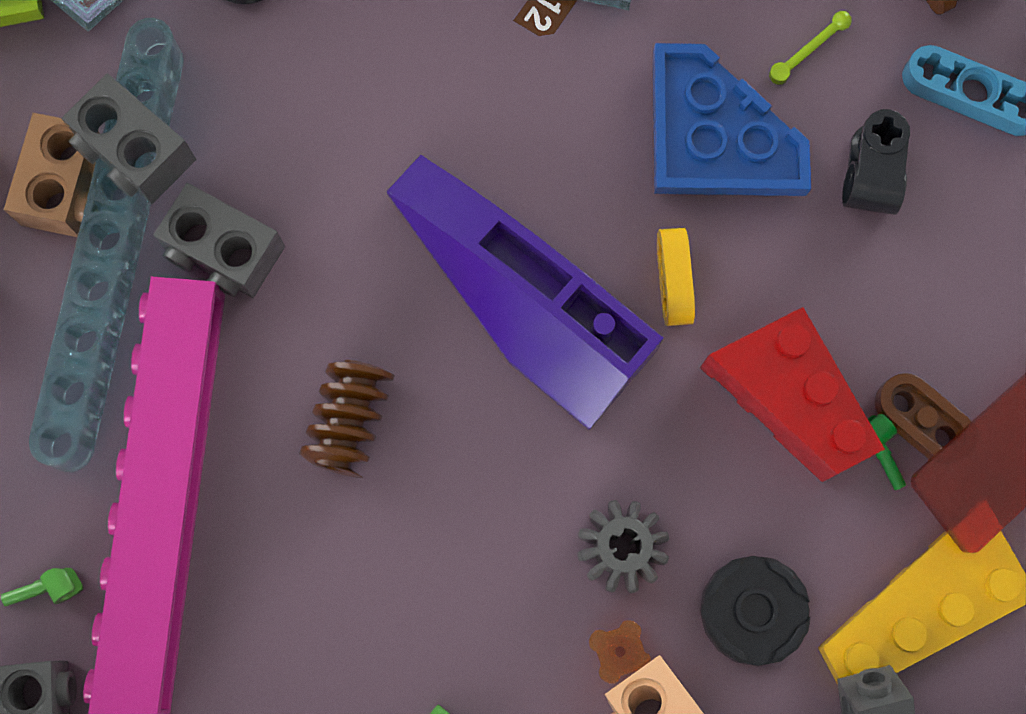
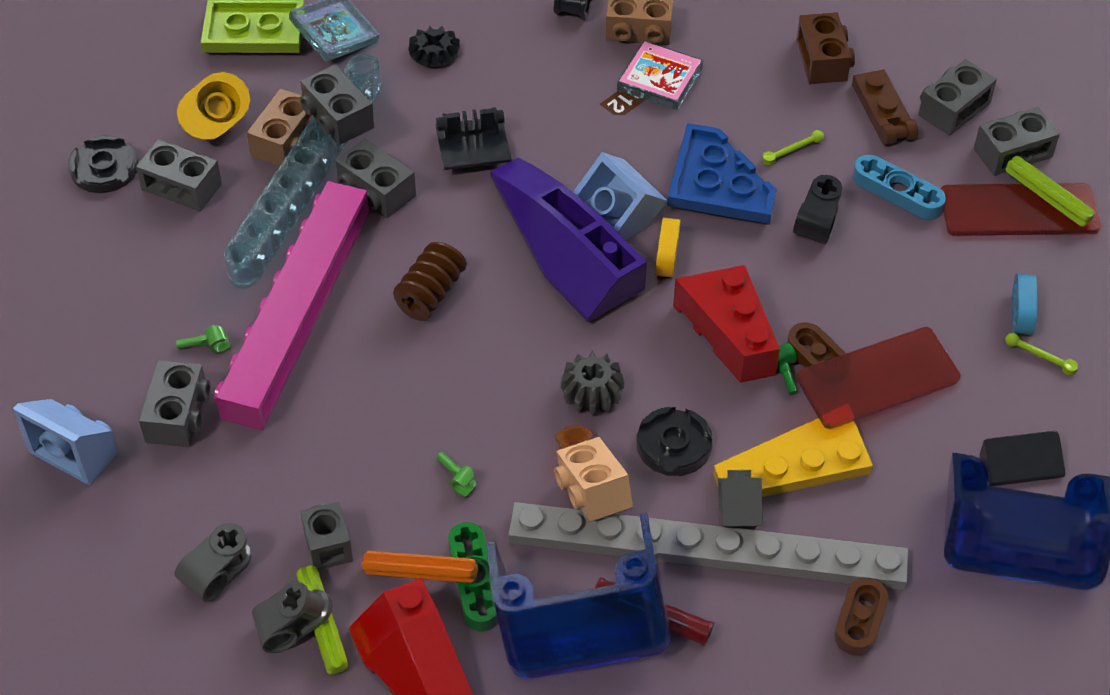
camera: 15 degrees right, 25 degrees down
(347, 139) = (472, 141): none -> black hinge
(584, 205) = (620, 195): none -> light blue slope

